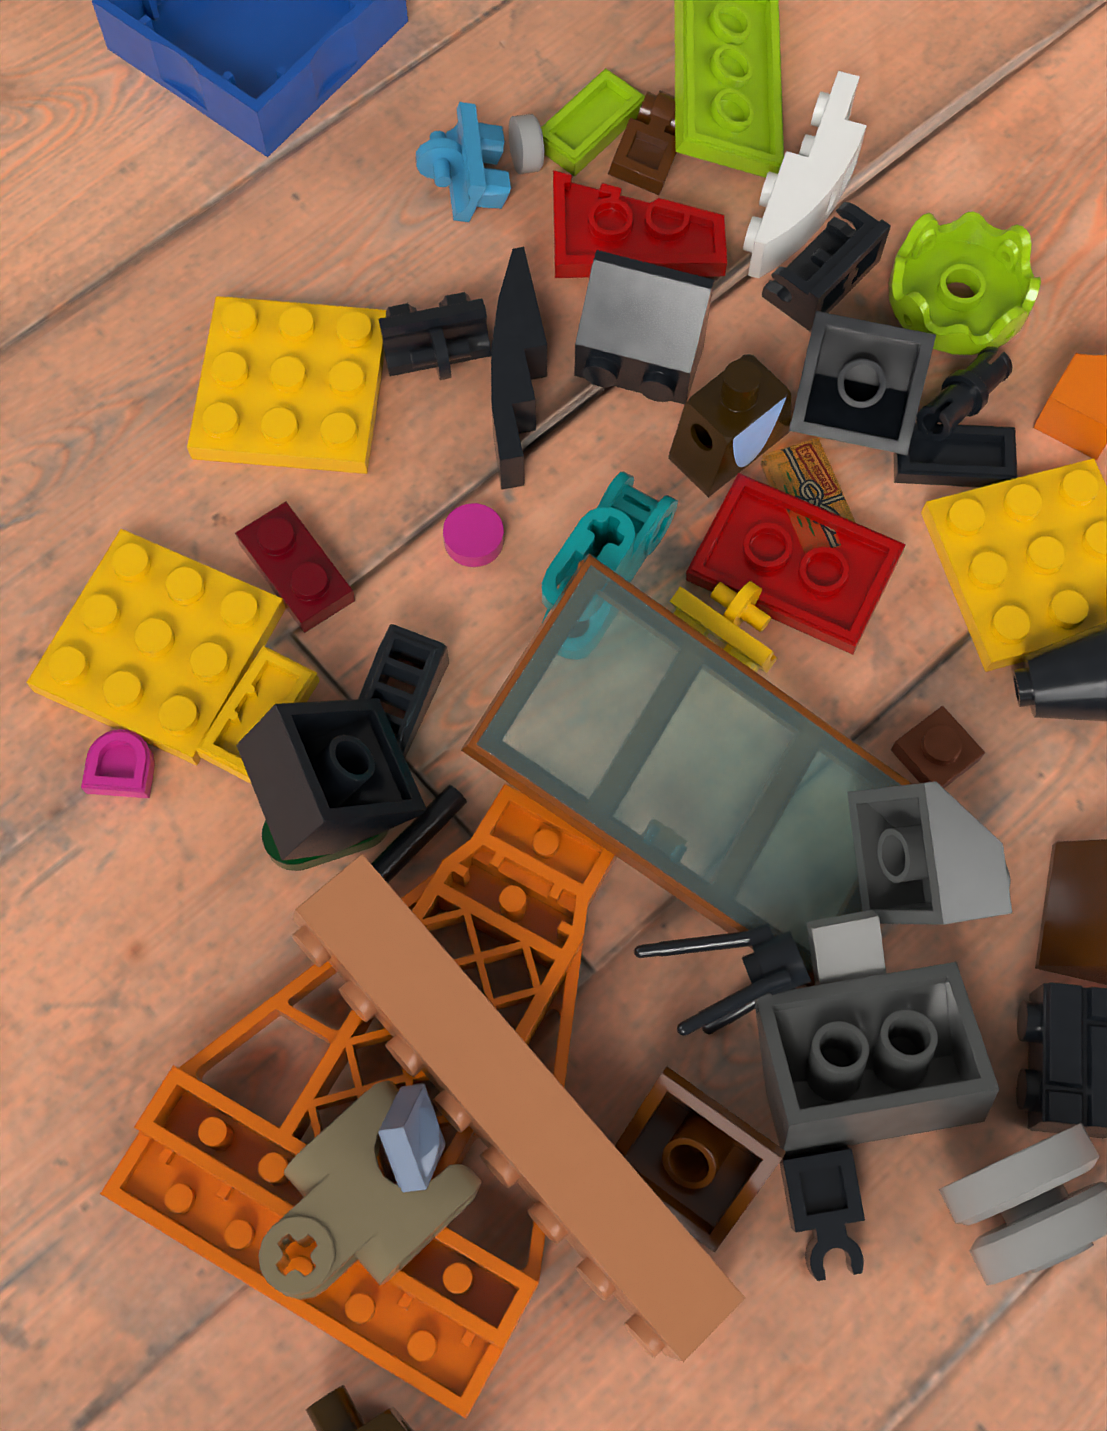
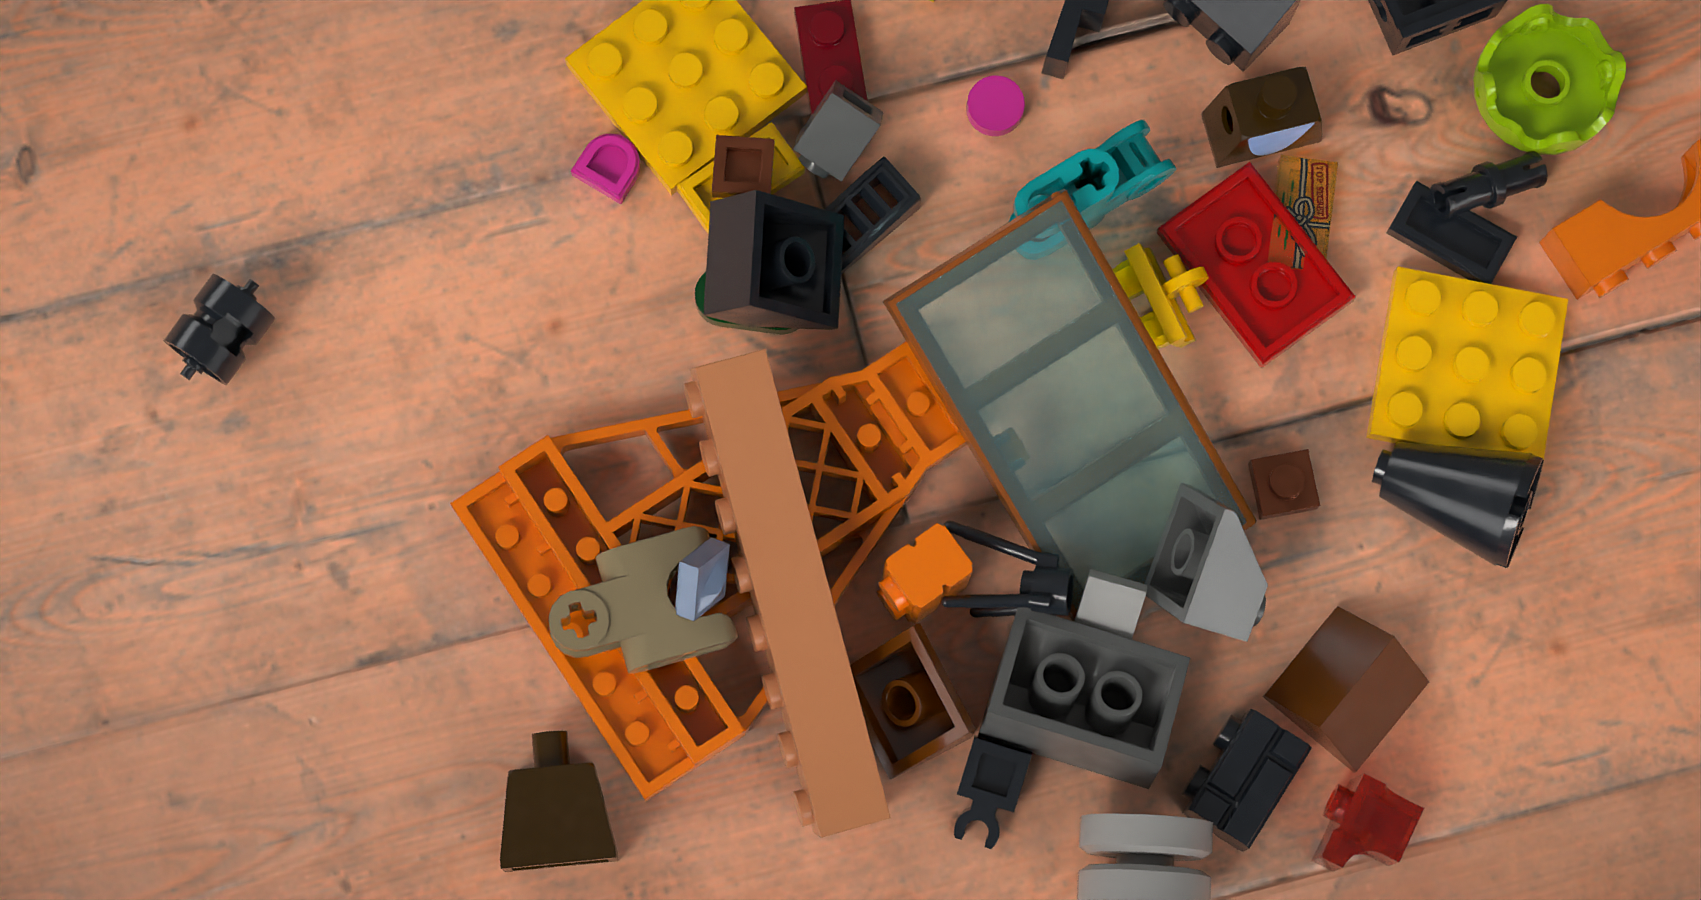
camera: 20 degrees right, 10 degrees up
(249, 693) = (742, 165): none -> copper plate
(333, 624) = (837, 132): none -> dark grey brick
(419, 833) = (820, 343): black bar -> none
(643, 1012) = (923, 574): none -> orange brick
(862, 382) = (1402, 130): black slope -> none

